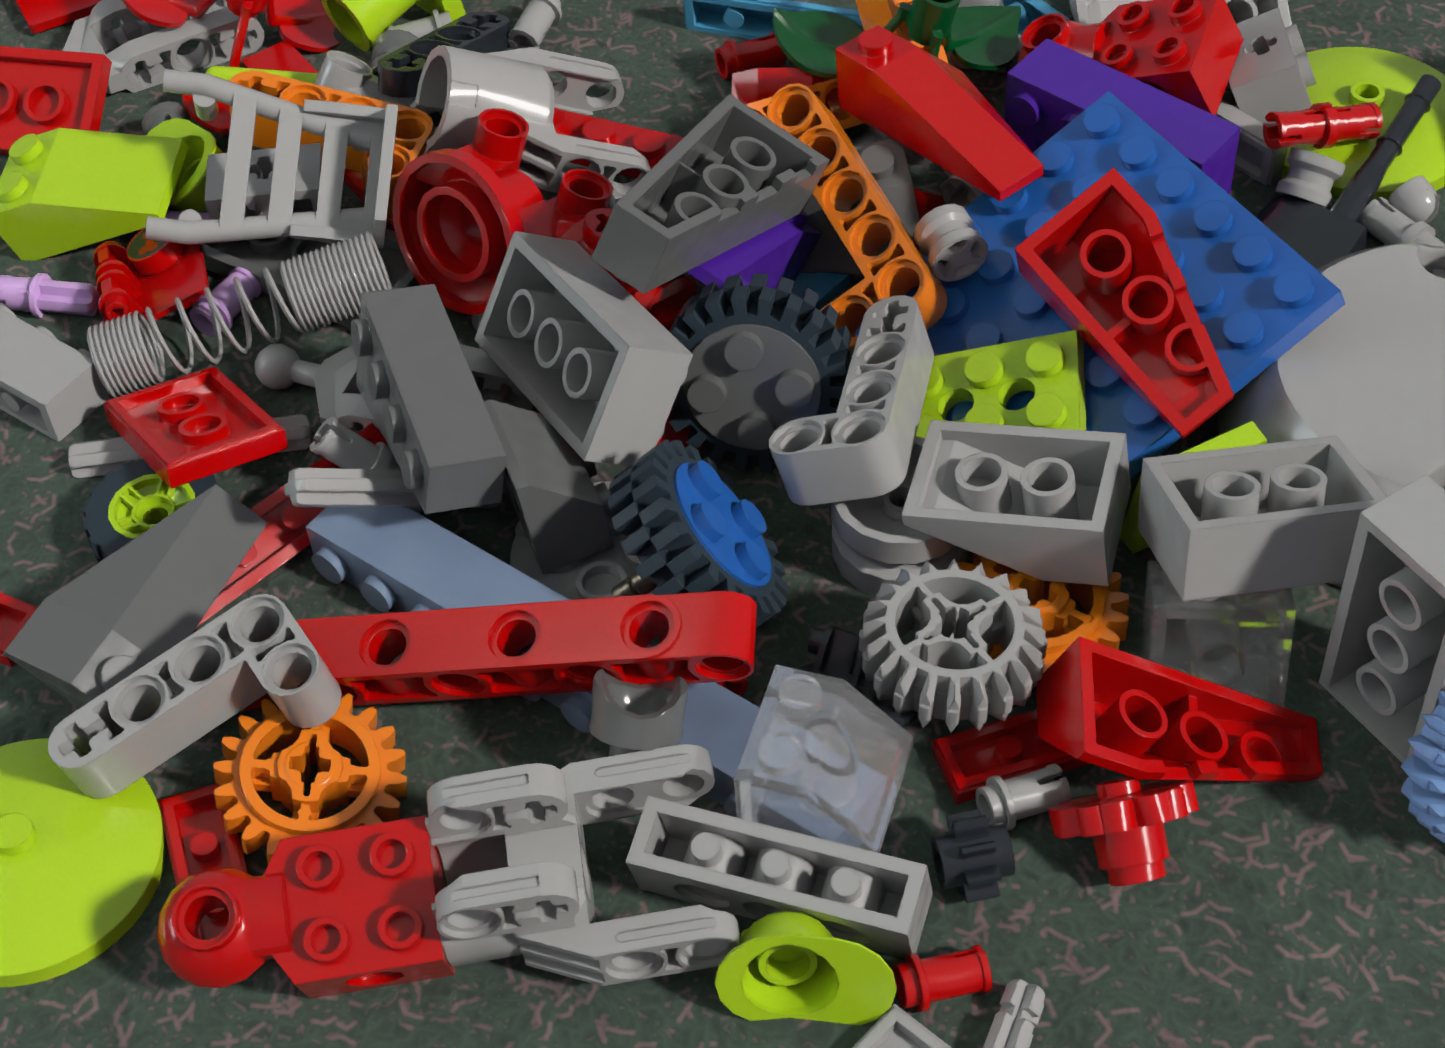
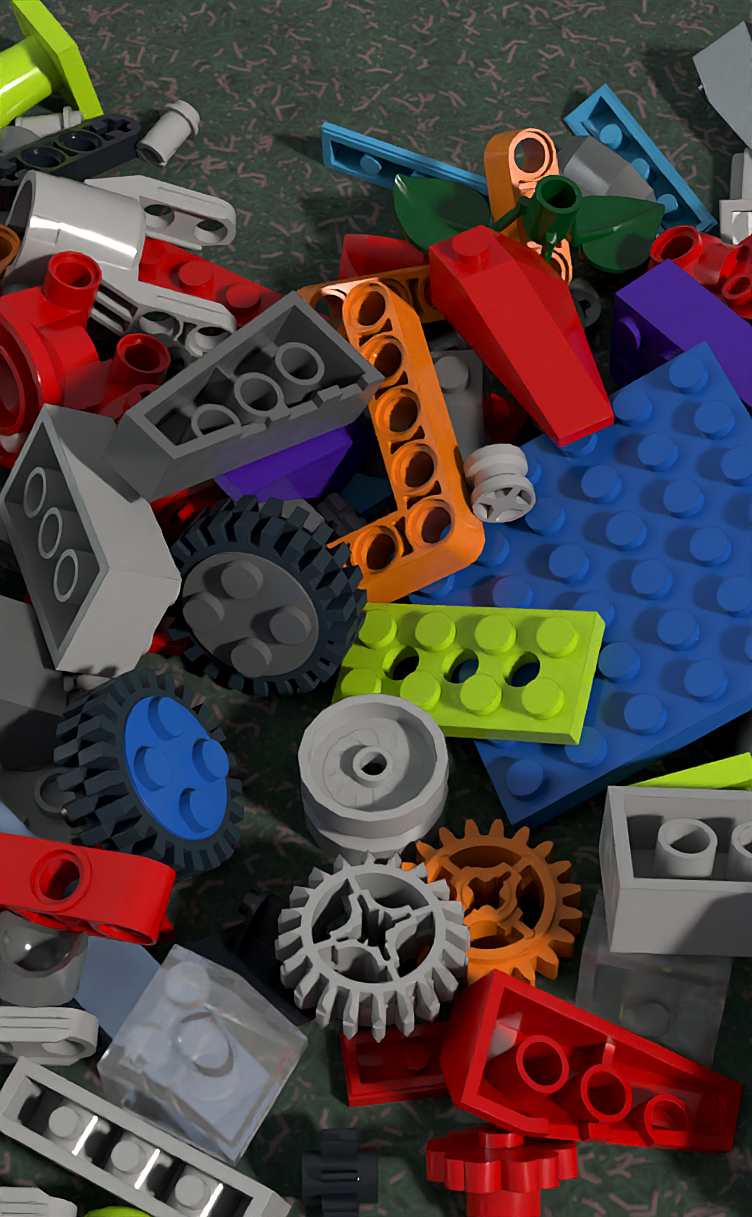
camera: 10 degrees right, 5 degrees up
(747, 55) = (367, 212): red pin -> none
(872, 435) = (351, 694): light grey beam -> none
(1022, 795) = (411, 1116): light grey pin -> none
(1024, 496) = (489, 793): light grey slope -> none
(1118, 285) = (649, 585): red wedge -> none

